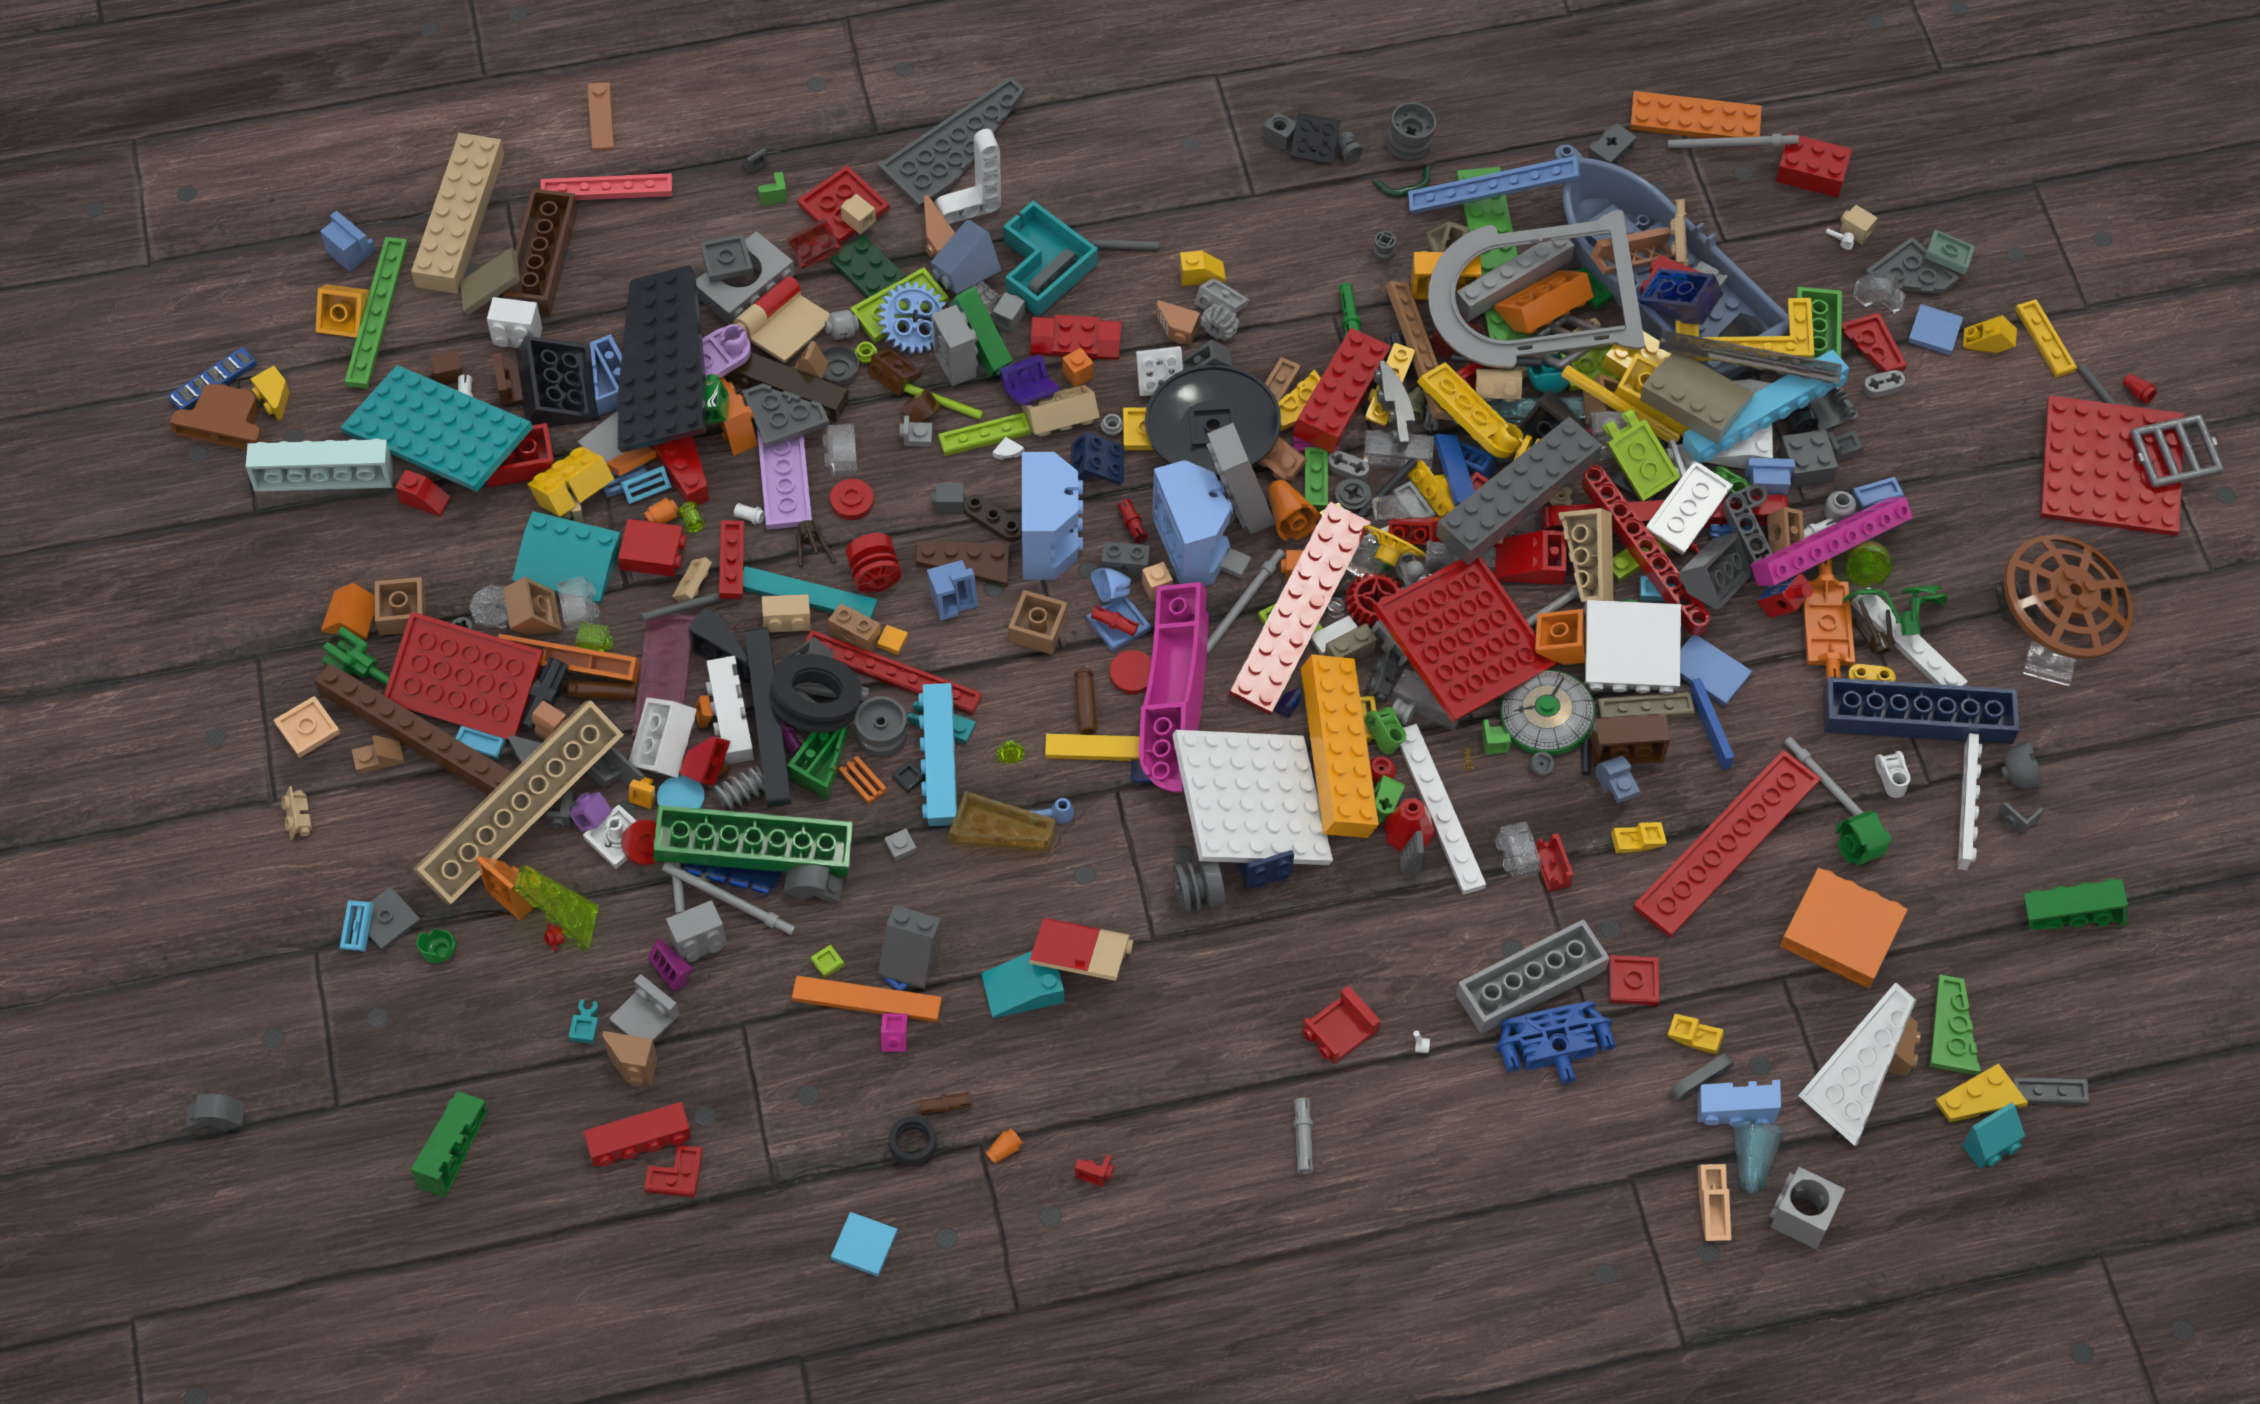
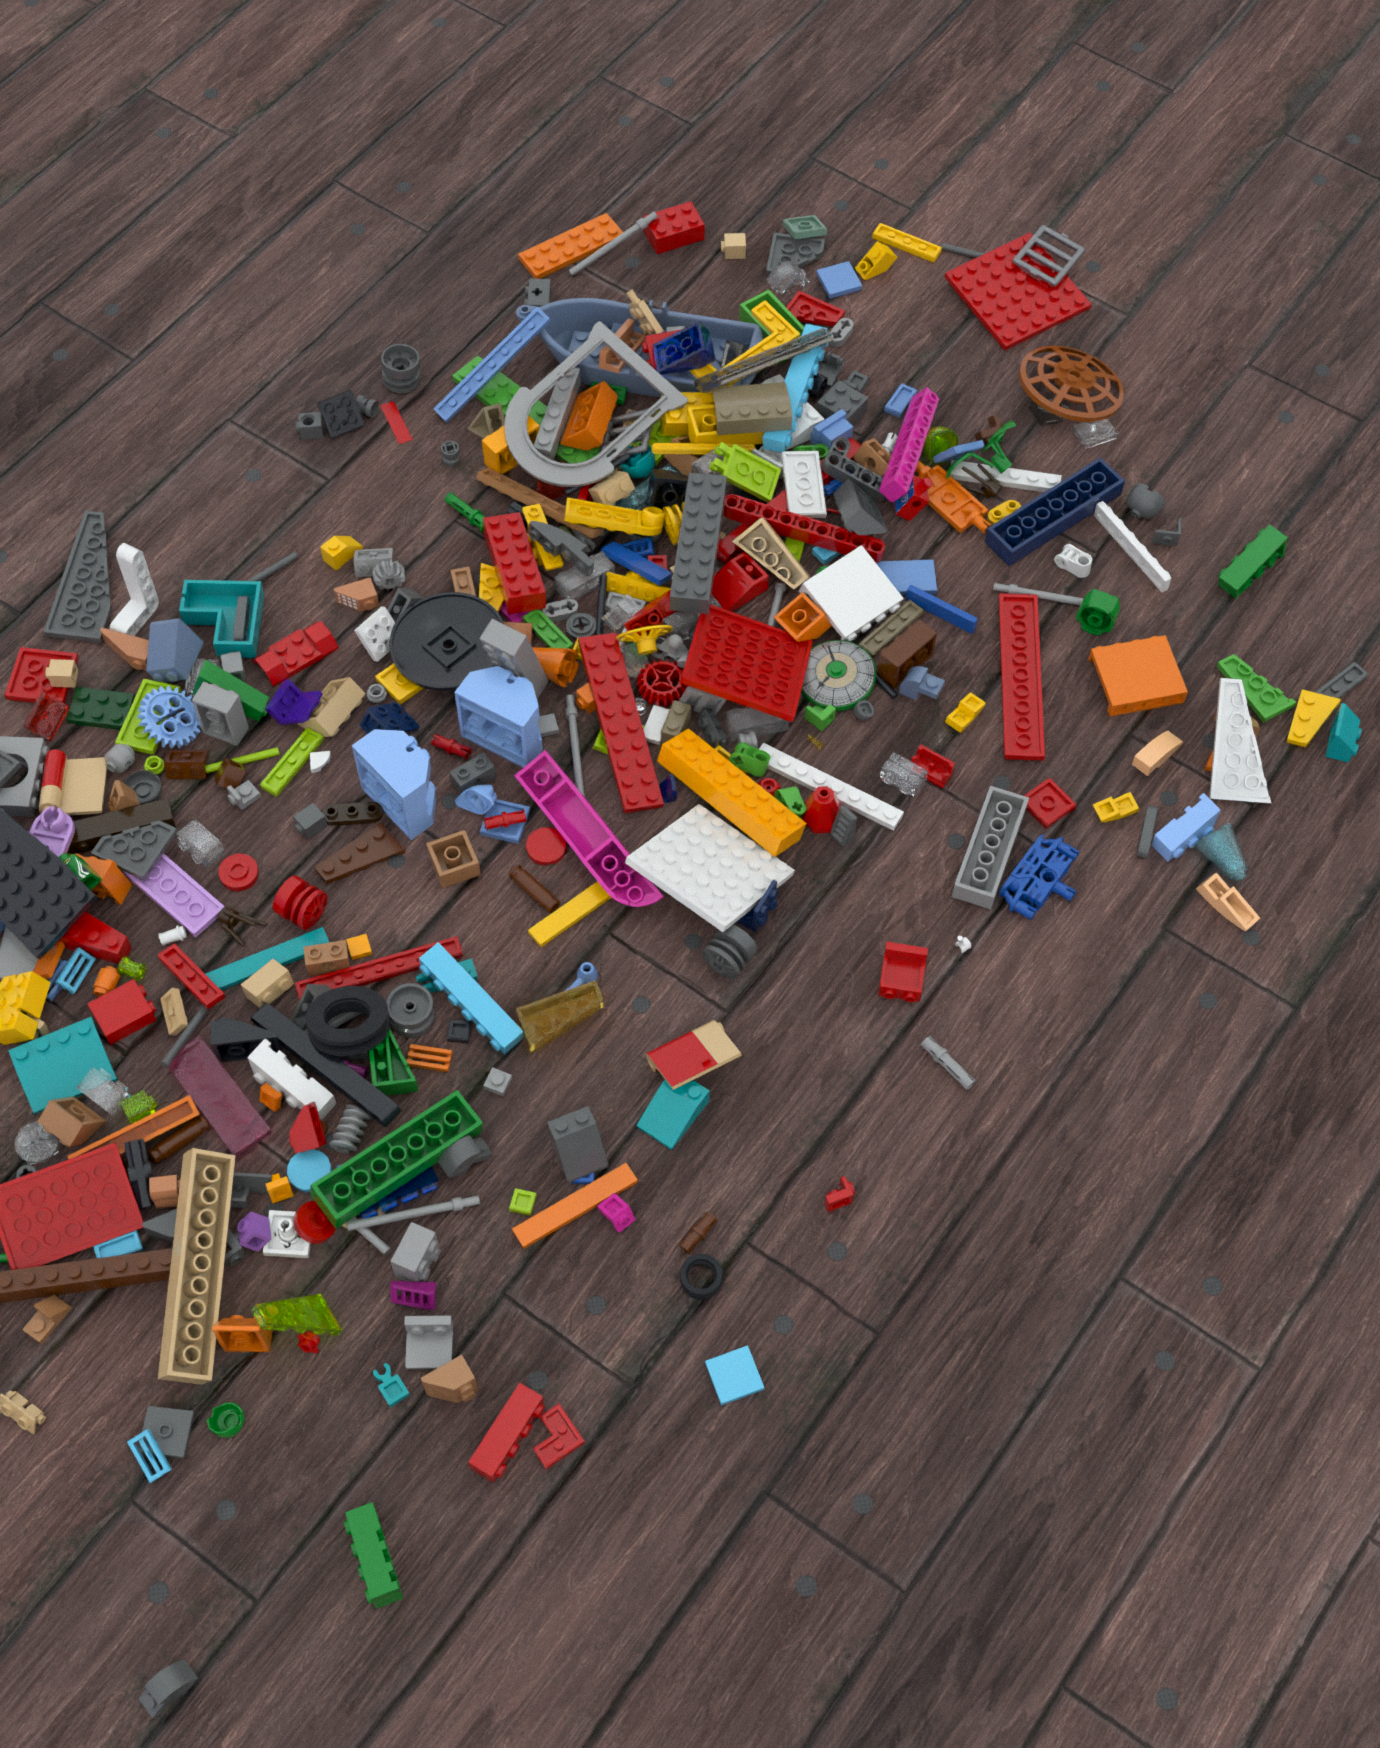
camera: 40 degrees left, 0 degrees up
(662, 737) = (259, 1137): white slope -> none
(952, 589) = (372, 880): medium blue plate -> none
(1004, 1146) = (765, 1228): orange cone -> none
(1010, 752) = (515, 960): clear neon green animal -> none
(1077, 367) = (318, 671): orange brick -> none
(1137, 772) = (614, 908): clear blue slope -> none
(1155, 576) = (505, 773): light nougat brick -> none
(1364, 182) = (396, 422): none -> red sticker
(1404, 190) = (417, 418): dark green animal -> none
(1789, 1013) = (1156, 752): none -> light nougat slope
(1811, 1187) = (1293, 848): light grey brick -> none
(1839, 506) = (890, 422): light grey head -> none
(1846, 239) = (735, 259): white hand -> none
(1875, 582) = (958, 451): none -> medium blue tile
(1947, 584) = (994, 423): none -> reddish brown bracket
(2141, 389) = (989, 235): red cone -> none

